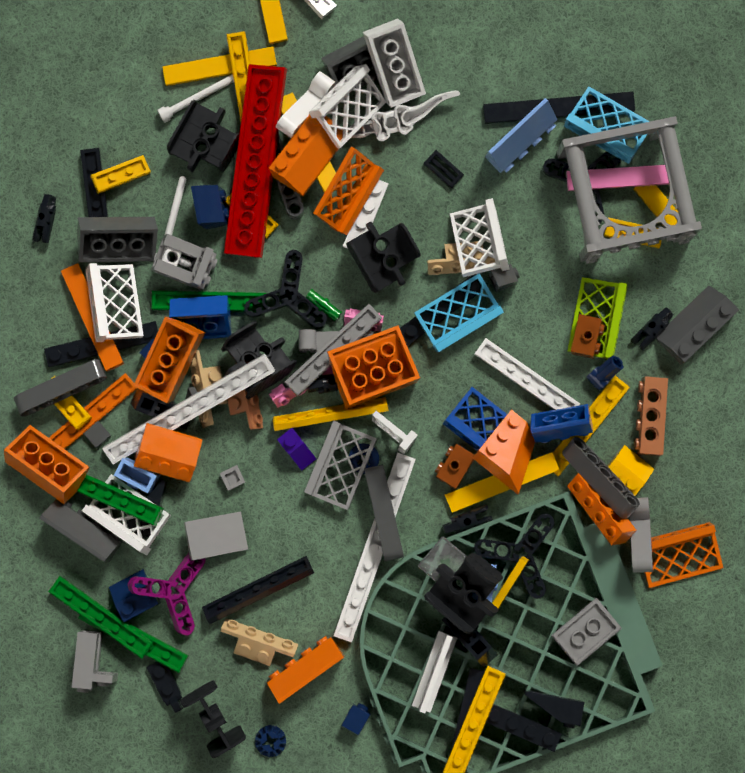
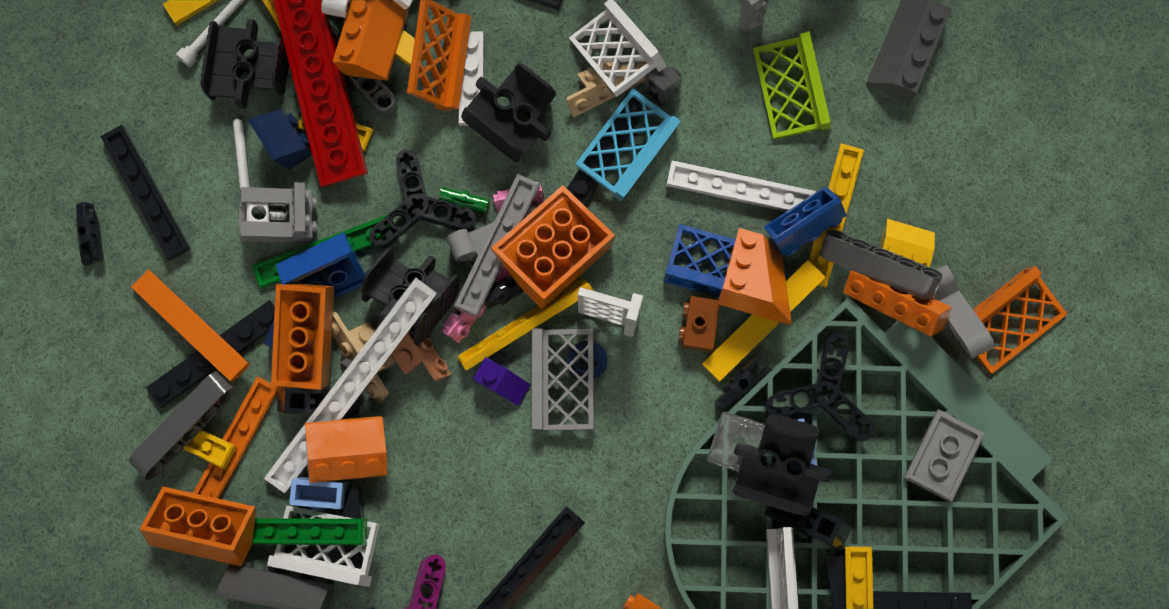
camera: 20 degrees left, 5 degrees down
(97, 434) = (251, 464): dark grey tile -> none
(98, 305) = (193, 310): white fence -> none
(116, 239) = (183, 220): dark grey slope -> none
(120, 174) = (160, 145): yellow tile -> none
(215, 536) = (445, 527): light grey tile -> none
(232, 478) = (438, 448): light grey plate -> none
(372, 554) = (645, 463): white plate -> none
(384, 513) = (639, 414): dark grey beam -> none
(510, 581) = (828, 431): yellow tile -> none
(564, 709) = (959, 561): black slope -> none
(586, 336) = (789, 109): dark orange brick -> none
(602, 375) = (827, 146): dark blue piece -> none
(652, 328) = (860, 72): black hinge -> none
(659, 388) = (899, 135): nougat brick -> none

